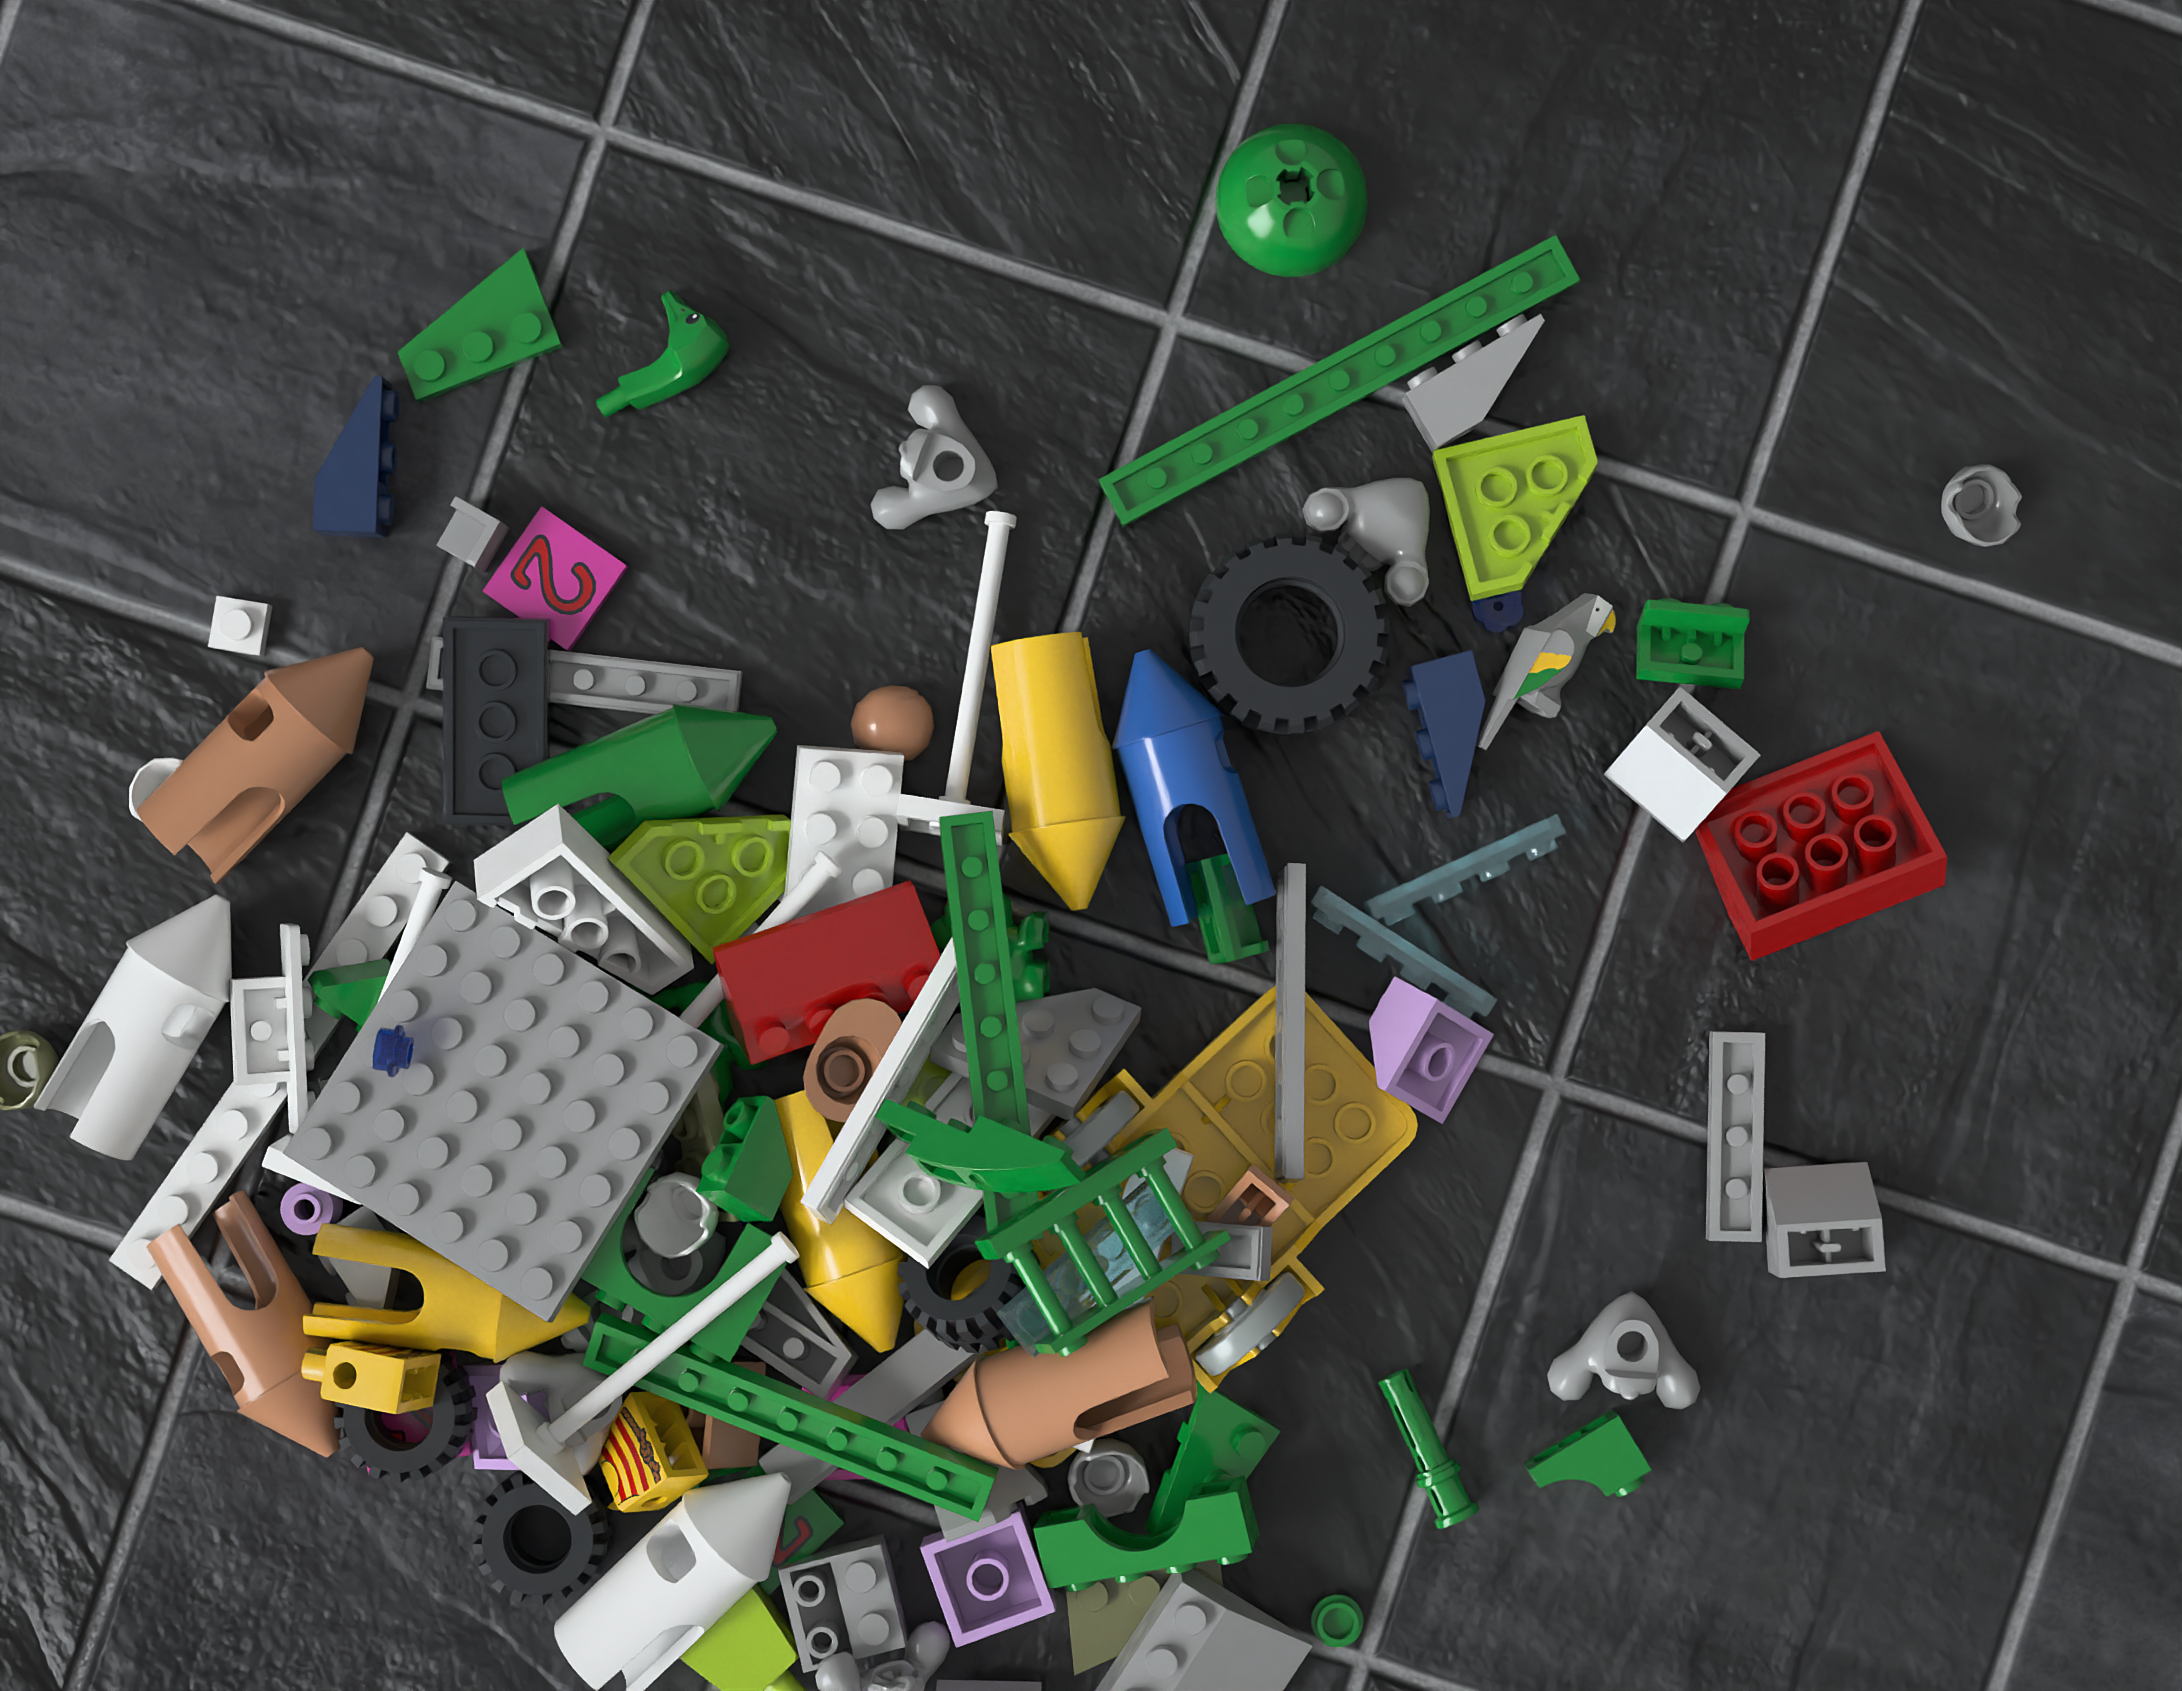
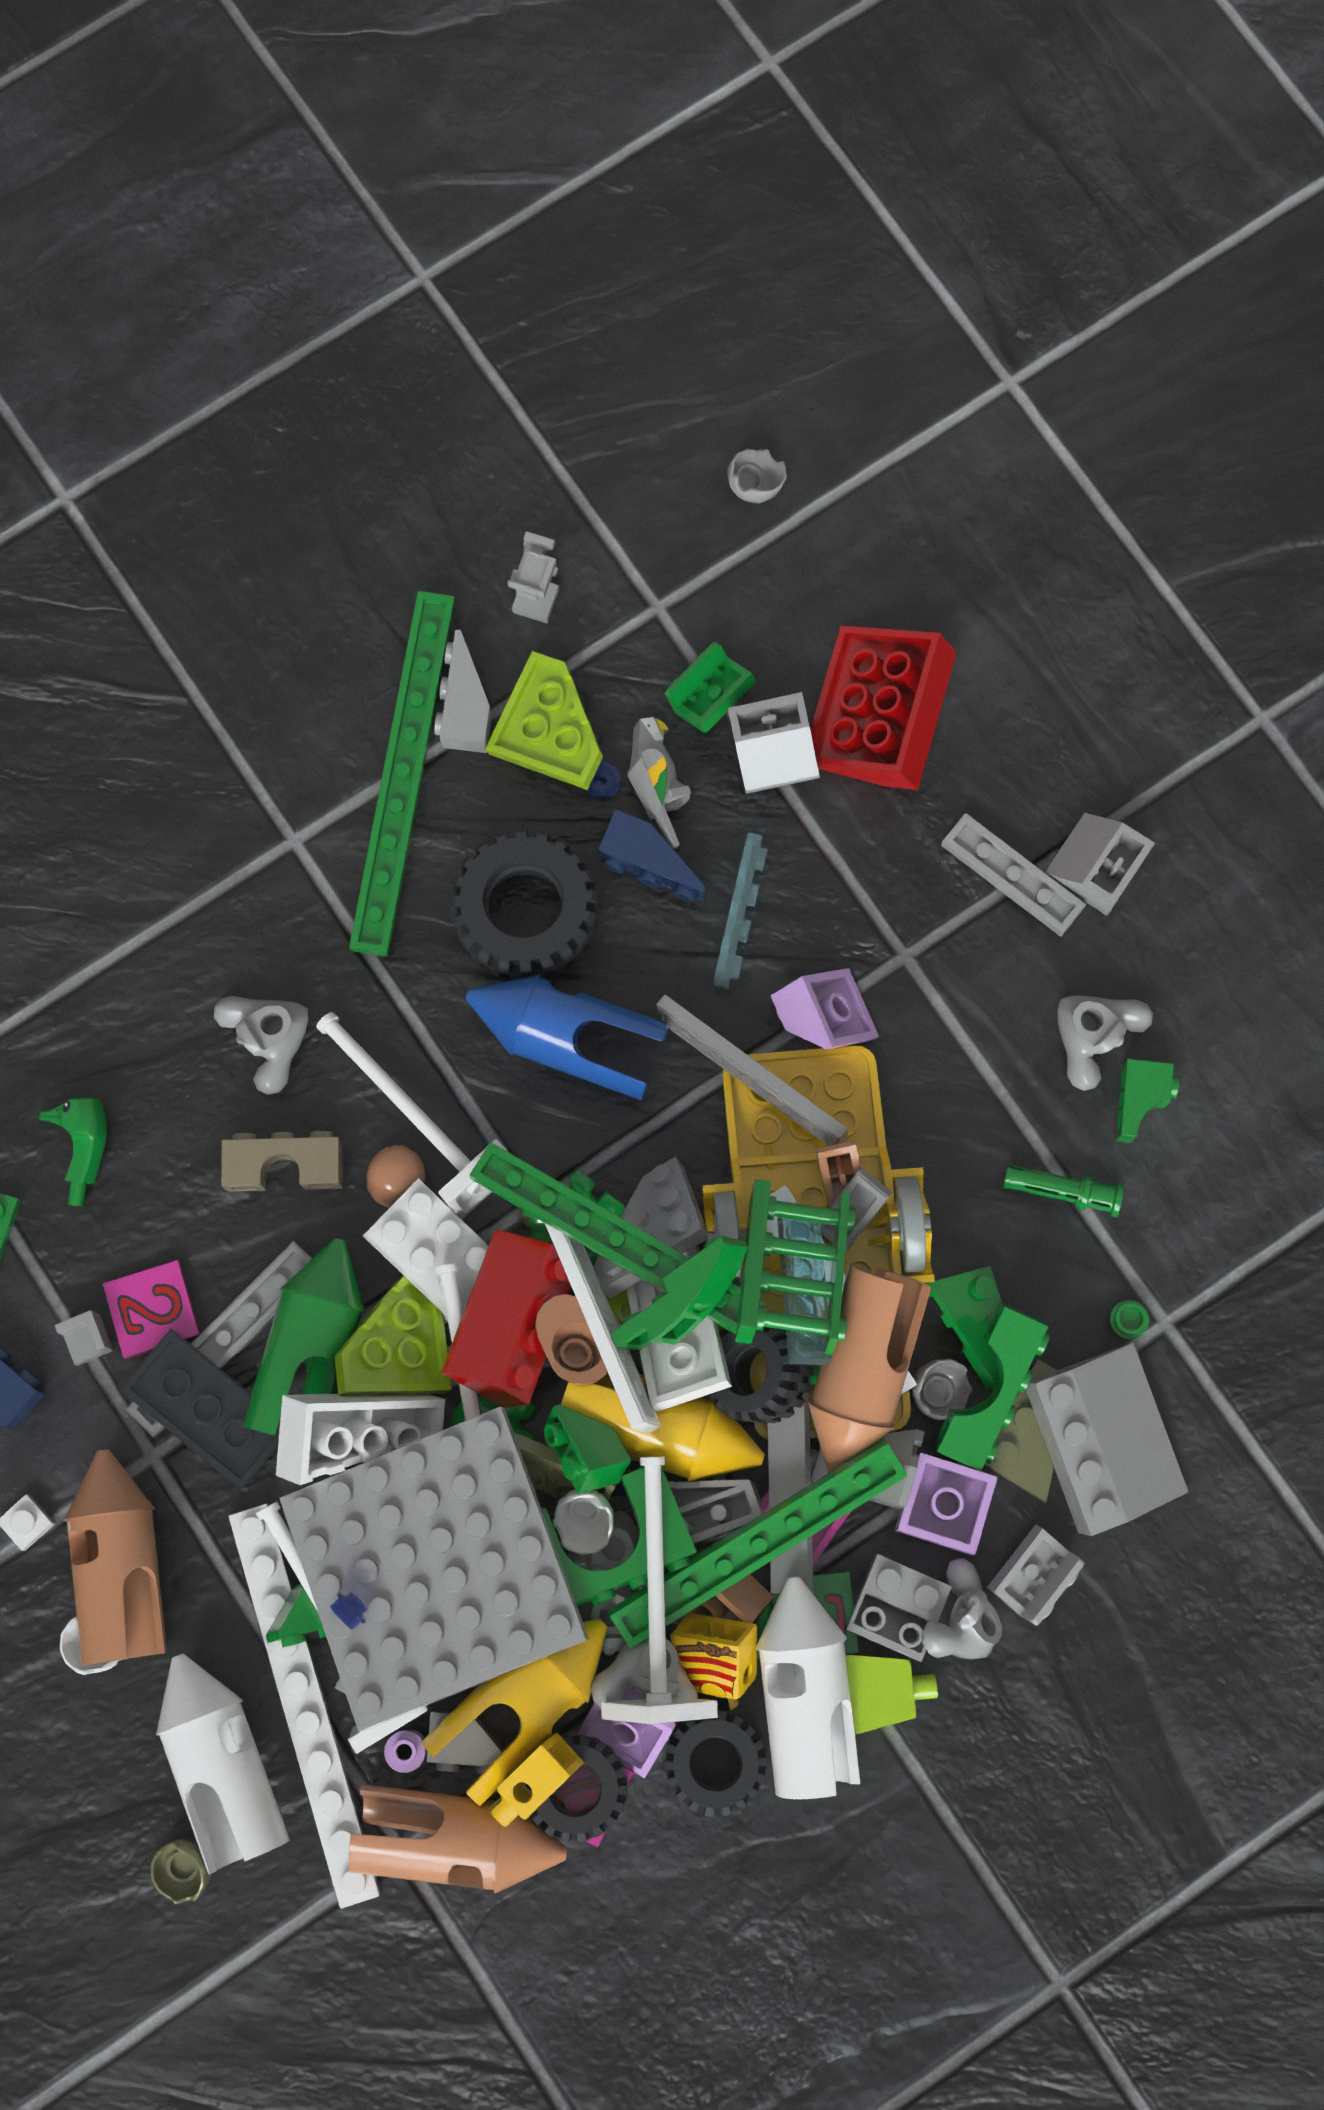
camera: 55 degrees left, 10 degrees down
(270, 1027) = (279, 1686): white bracket -> none
(785, 556) = (249, 1159): none -> dark tan arch
(1057, 761) = (492, 1091): yellow piece -> none
(1224, 918) = (654, 1064): green hinge -> none
(1271, 220) = (287, 738): green piece -> none
(1381, 526) = (506, 805): light grey head -> none
(1418, 966) = (746, 987): clear light blue plate -> none
(1663, 358) = (532, 580): none -> light grey piece

